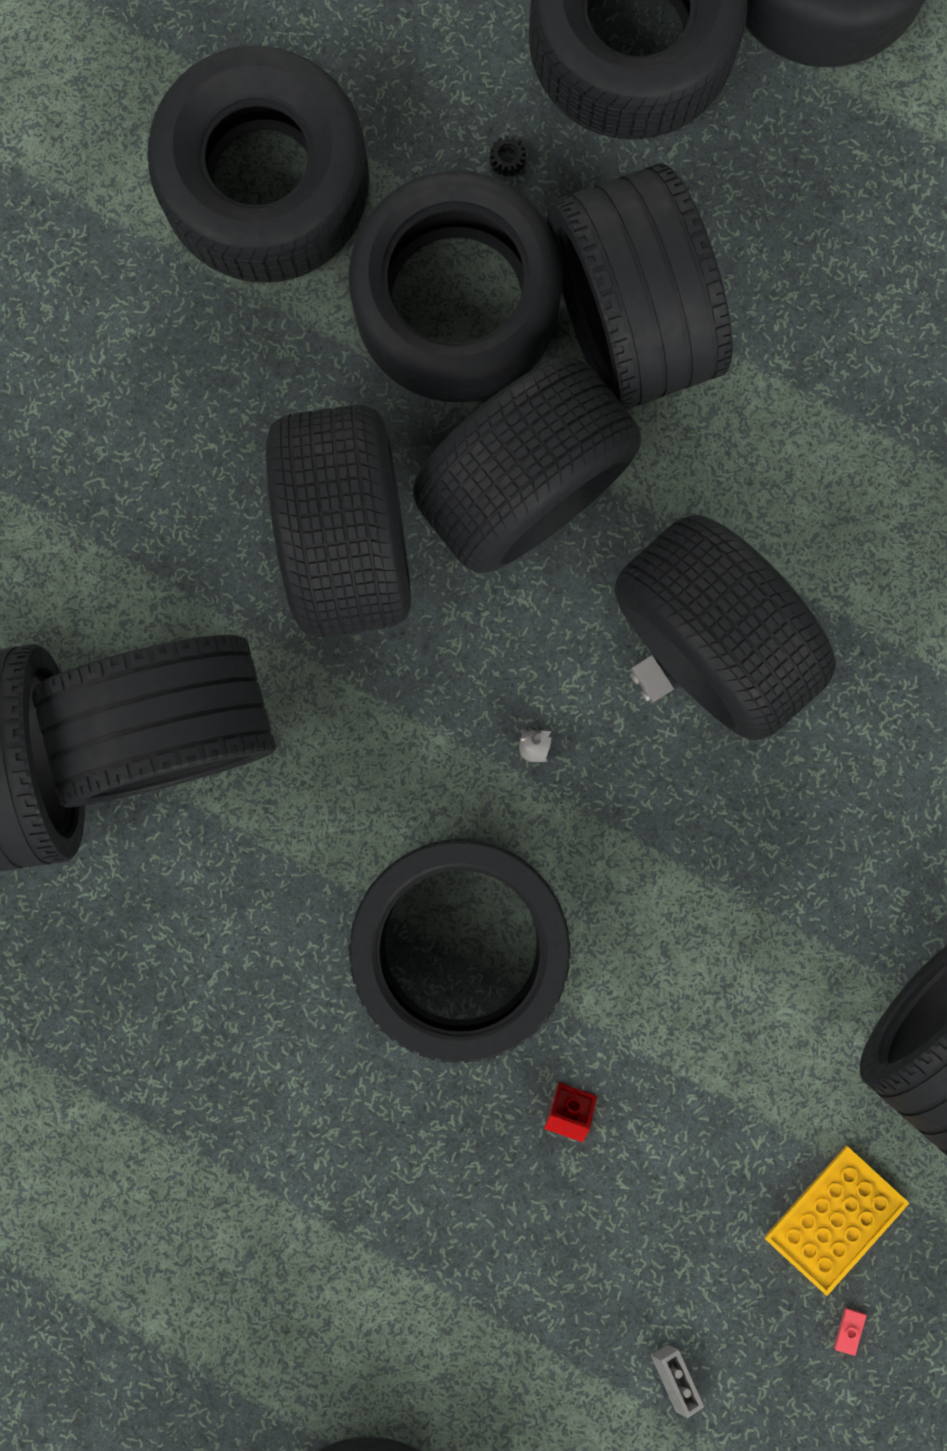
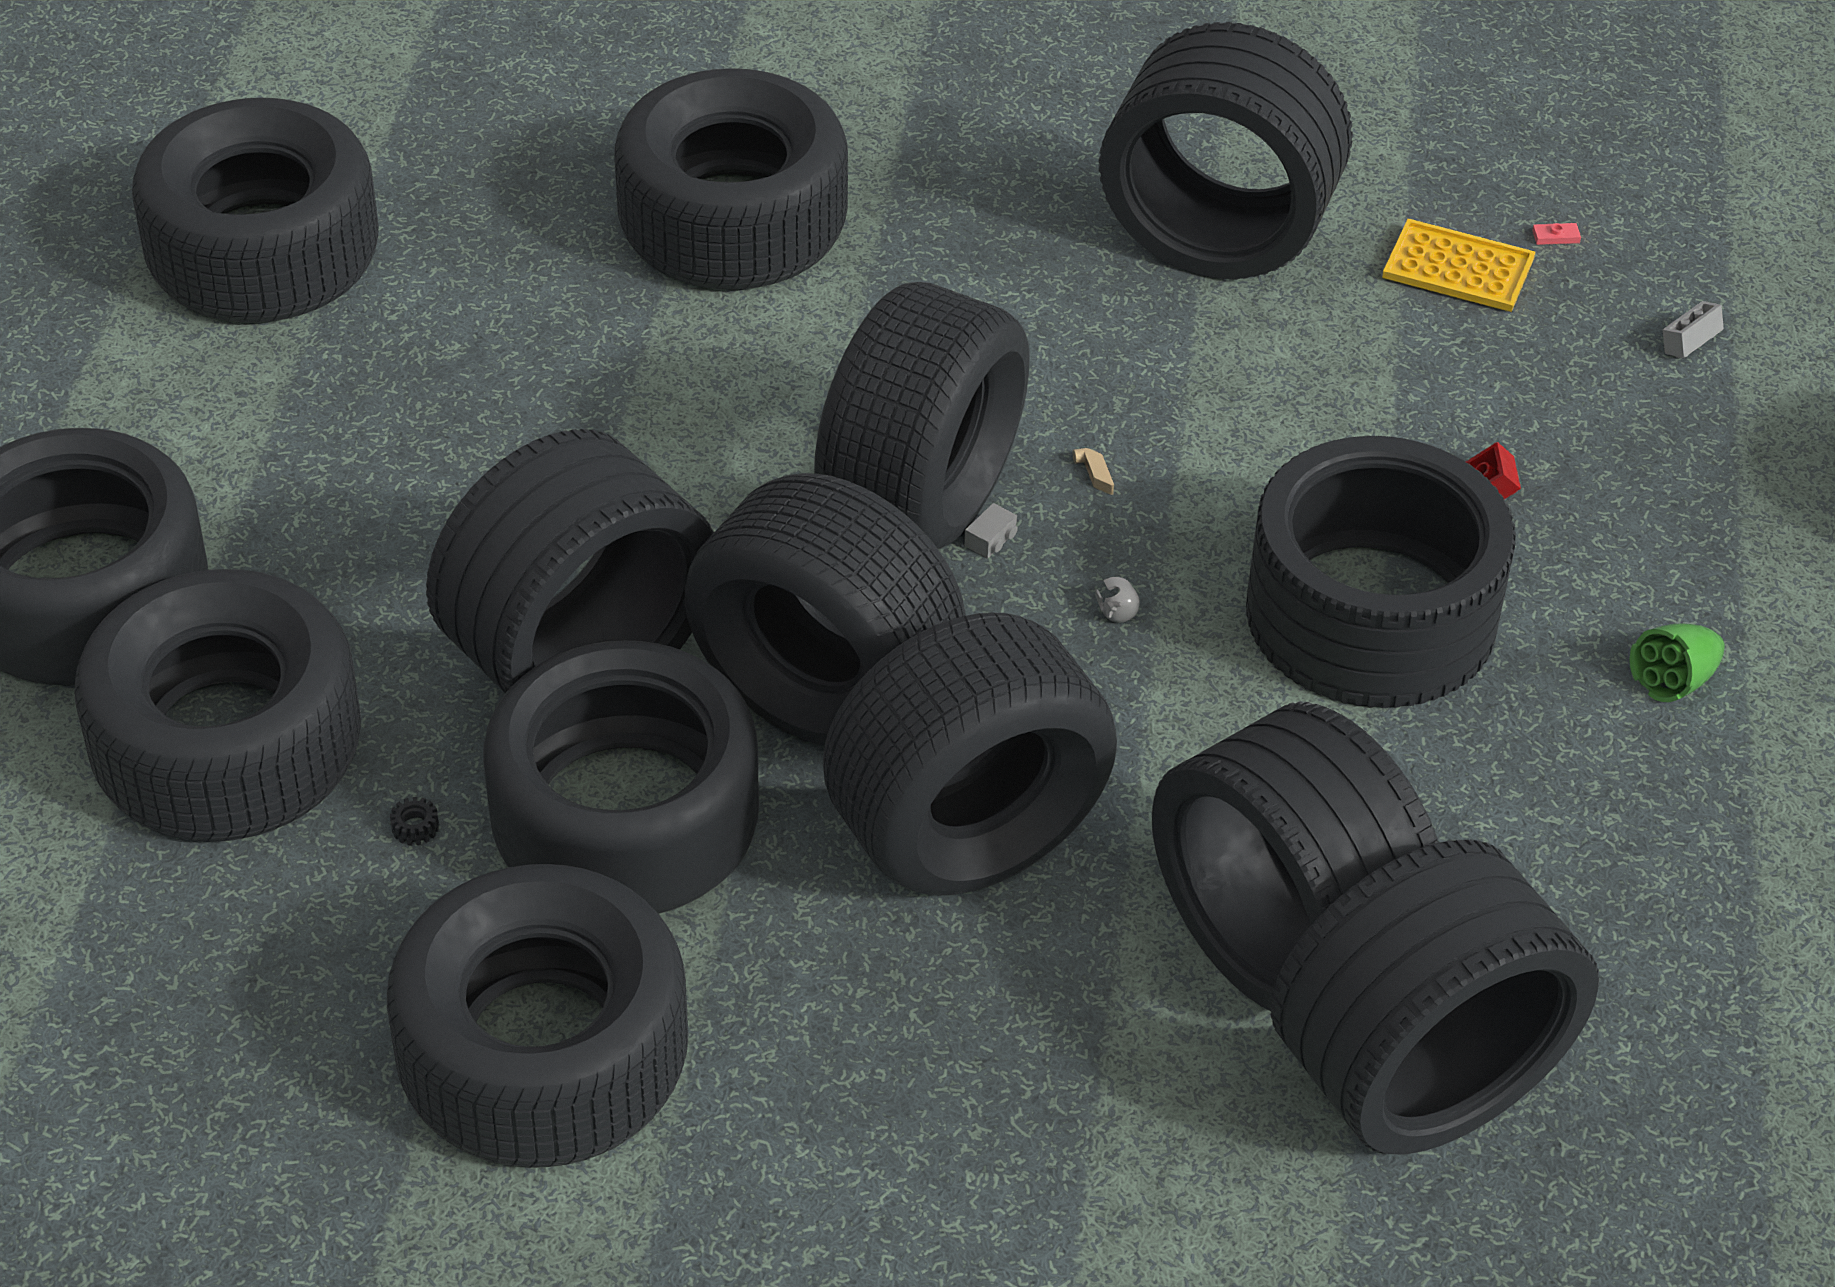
camera: 115 degrees left, 40 degrees down
(313, 1156) = (1679, 656): none -> bright green cylinder
(696, 794) = (1096, 468): none -> tan piece

